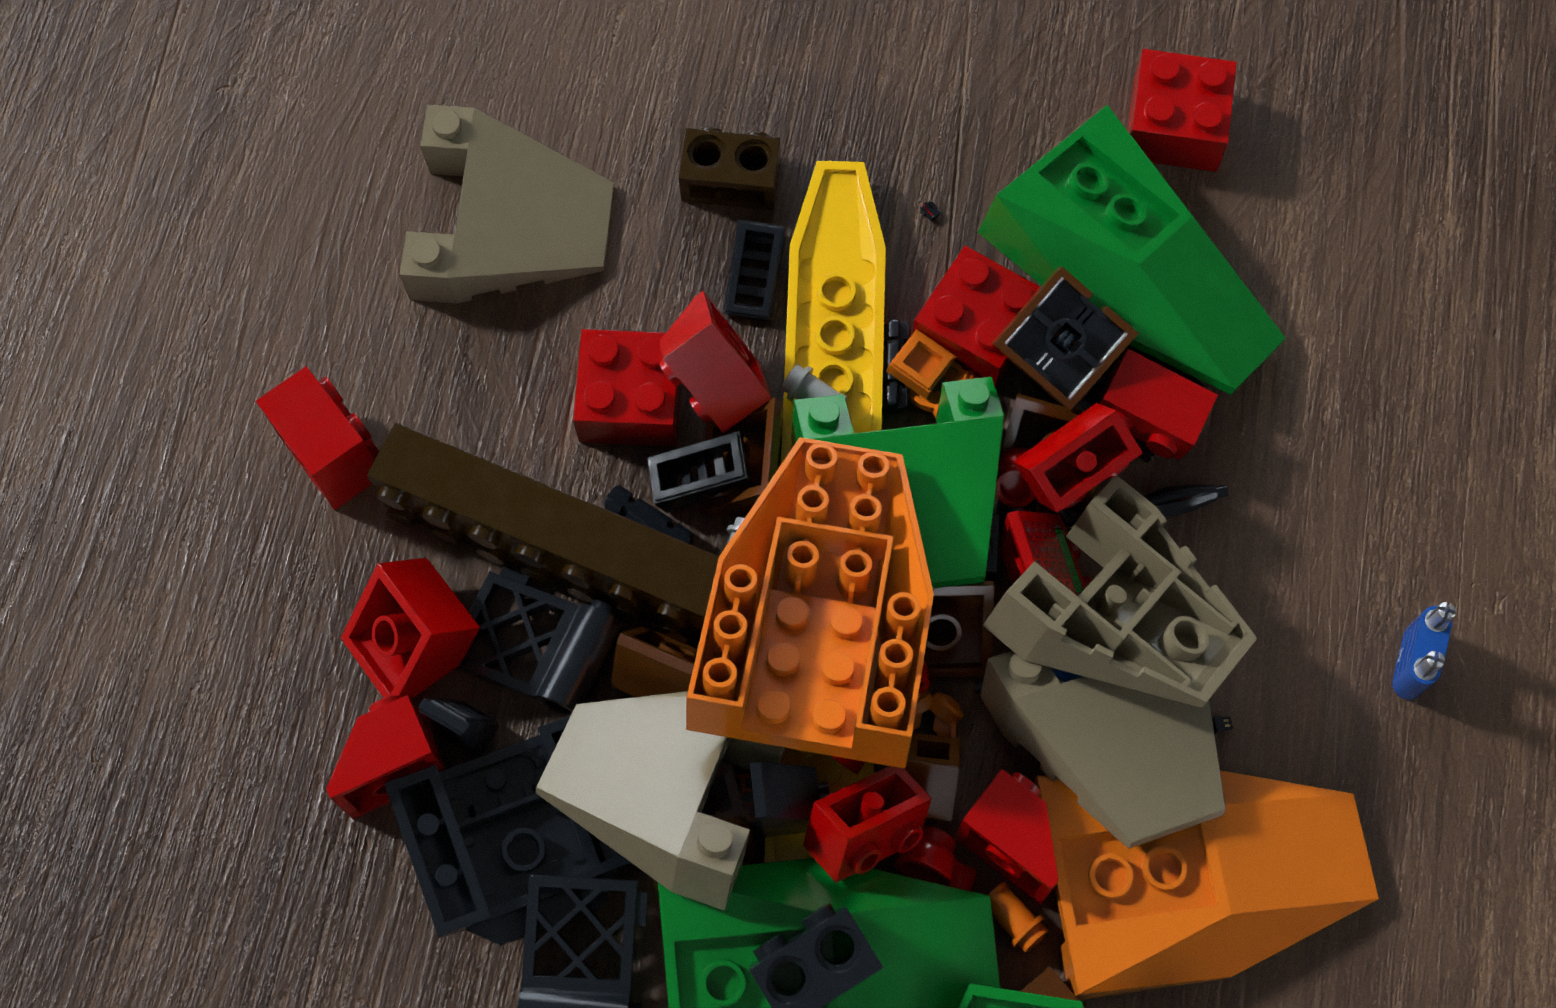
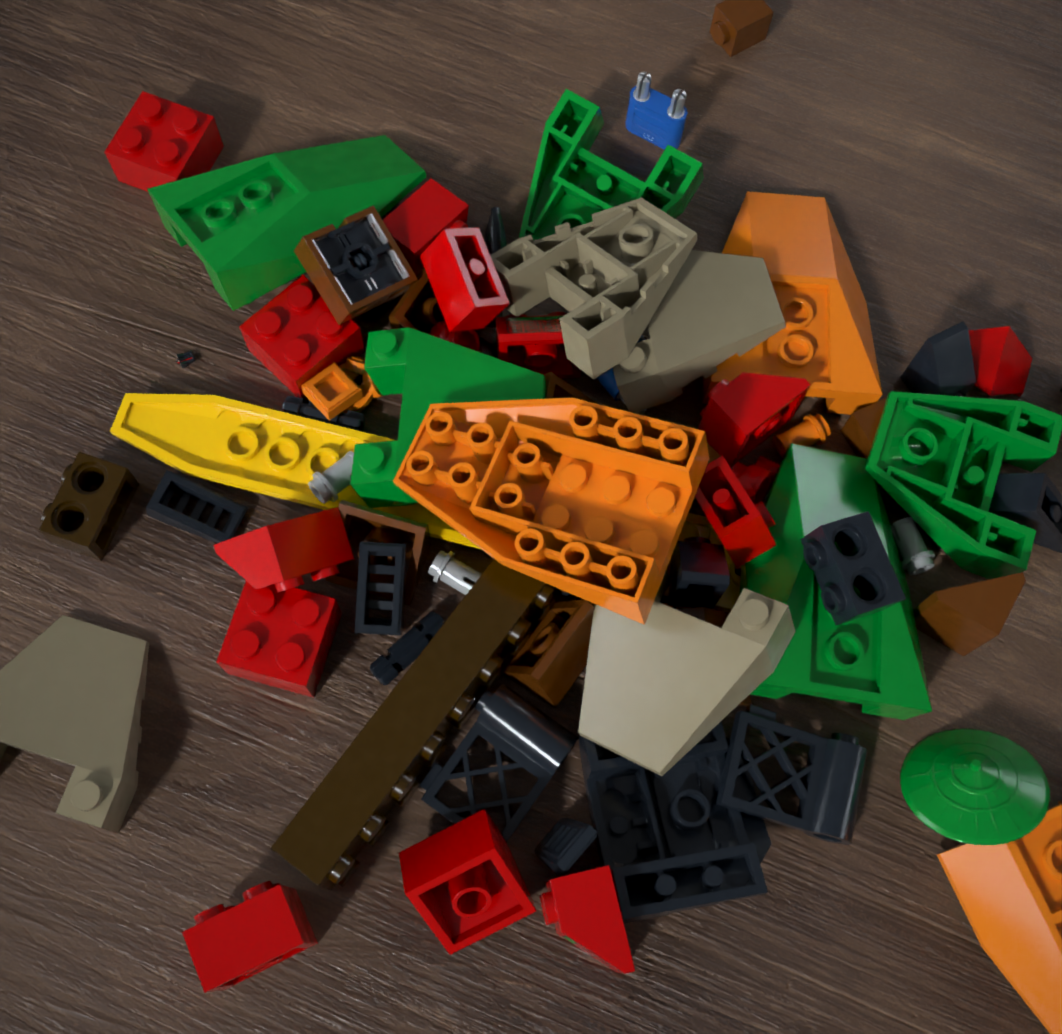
camera: 85 degrees left, 0 degrees up
(1285, 587) = (575, 183): none -> green wedge

